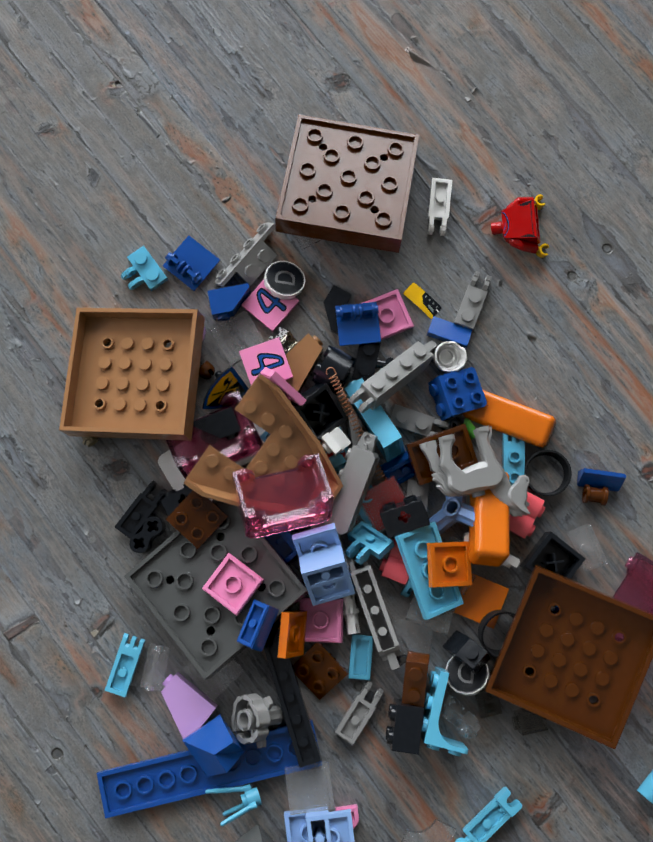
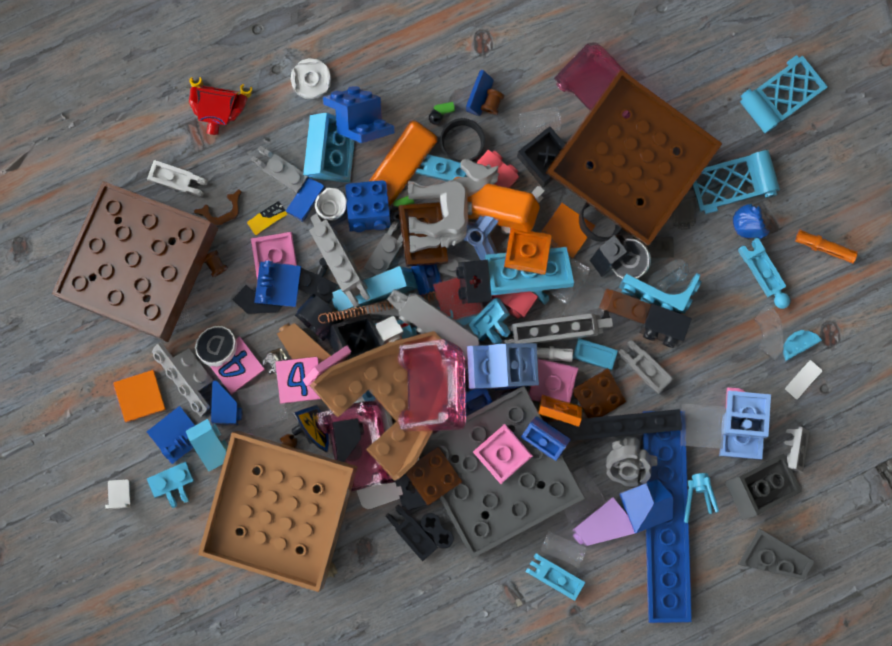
camera: 80 degrees left, 0 degrees up
(122, 223) = (118, 494): none -> white bracket
(185, 291) = (207, 444): none -> medium azure piece
(221, 221) = (139, 396): none -> orange tile
(364, 260) = (215, 264): none -> reddish brown bush
(418, 267) = (233, 214): none -> reddish brown helmet
(506, 343) = (327, 152): none -> medium azure slope
(537, 794) = (749, 222): none -> blue hair
(547, 362) = (358, 114): none -> blue bracket
(570, 442) = (438, 112): none -> arm
(571, 310) = (311, 78): none -> white tile
(588, 797) = (762, 177): none -> medium azure piece

